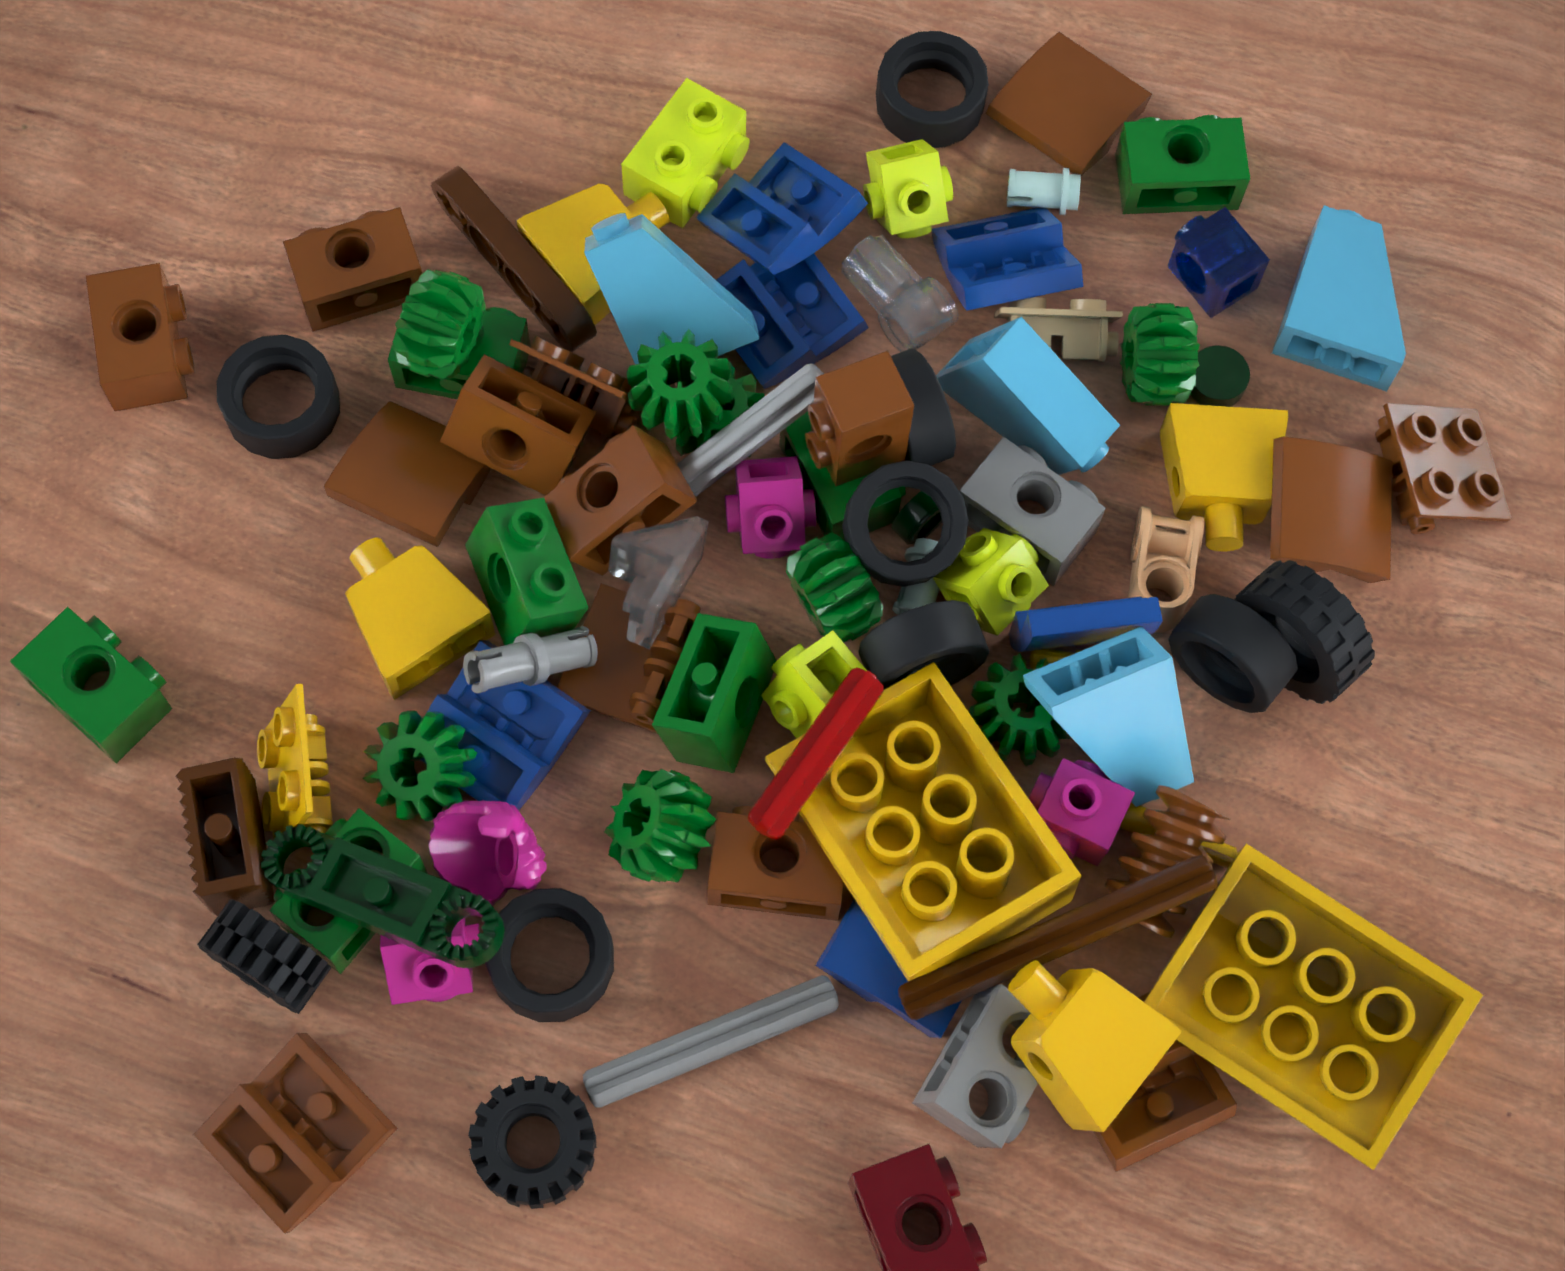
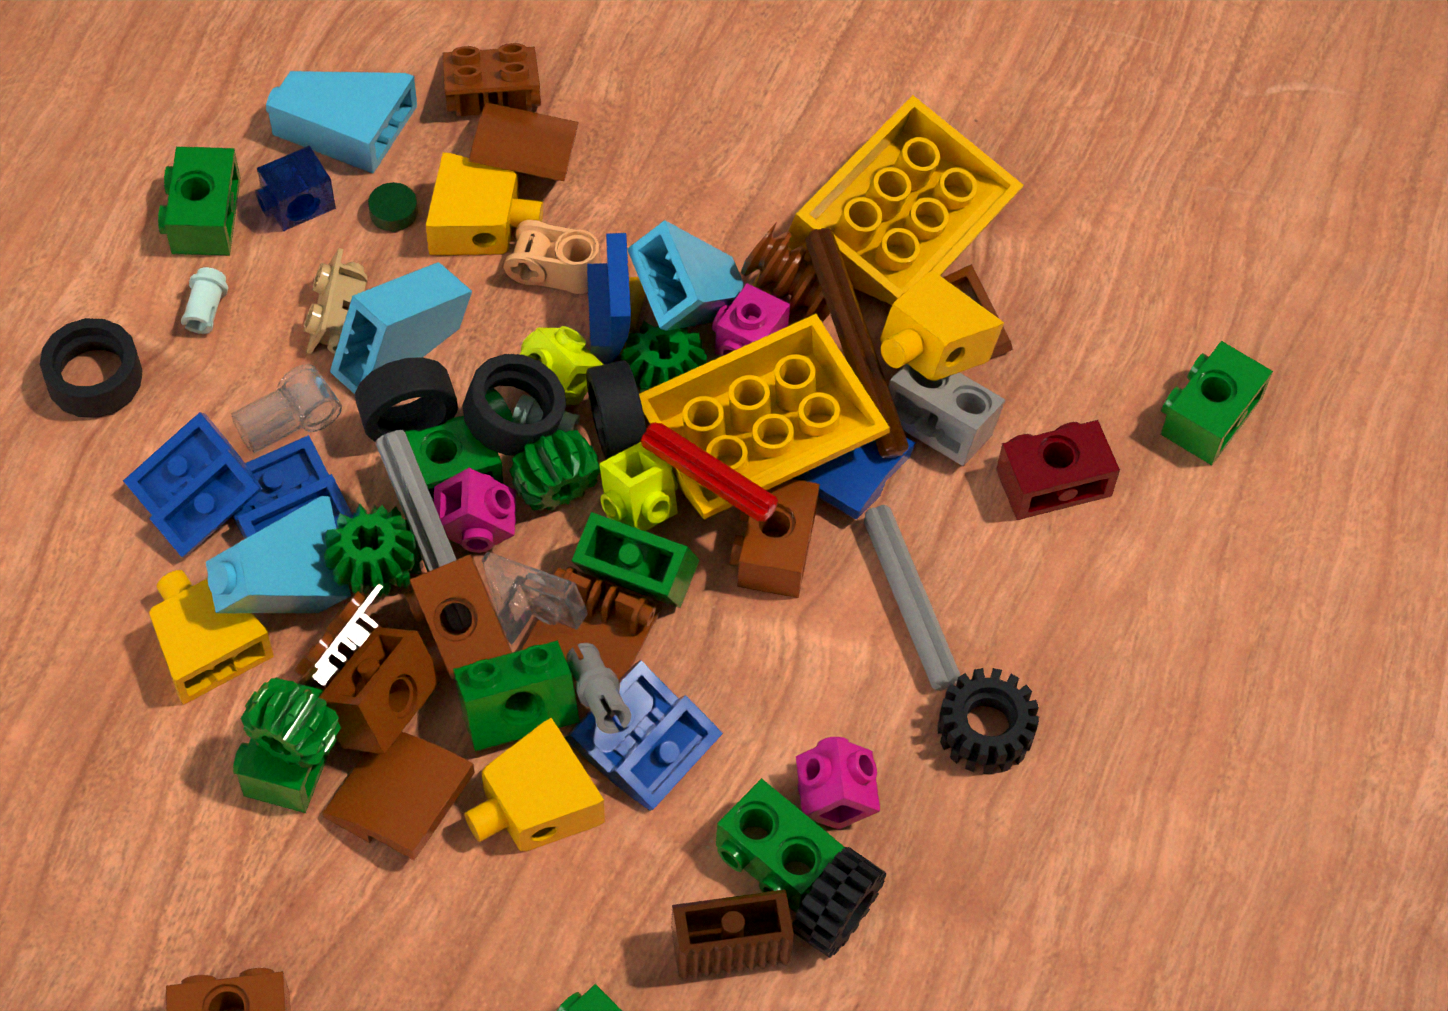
camera: 85 degrees left, 10 degrees down
(261, 358) = (295, 862): black tyre -> none
(294, 754) = (673, 872): yellow hinge -> none
(295, 1132) = (973, 899): dark orange slope -> none
(344, 294) = (204, 856): dark orange brick -> none
(383, 896) = (803, 790): dark green plate -> none
(408, 743) = (671, 801): green gear -> none
(486, 849) = (753, 738): dark pink hair -> none
(514, 259) = (198, 701): reddish brown beam -> none
(588, 990) = (848, 664): black tyre -> none
(660, 826) = (764, 617): green gear -> none
(686, 151) = (118, 554): neon yellow brick -> none
(859, 418) = (431, 410): dark orange brick -> none
(907, 188) = (191, 384): neon yellow brick -> none
(1006, 258) = (267, 329): blue slope -> none
(1021, 474) = (501, 312): light grey brick -> none
(1068, 103) = (124, 272): dark orange slope -> none
(1159, 354) = (378, 230): green gear -> none
(1233, 653) = (638, 206): black tyre -> none
(1318, 625) = (612, 151): black tyre -> none

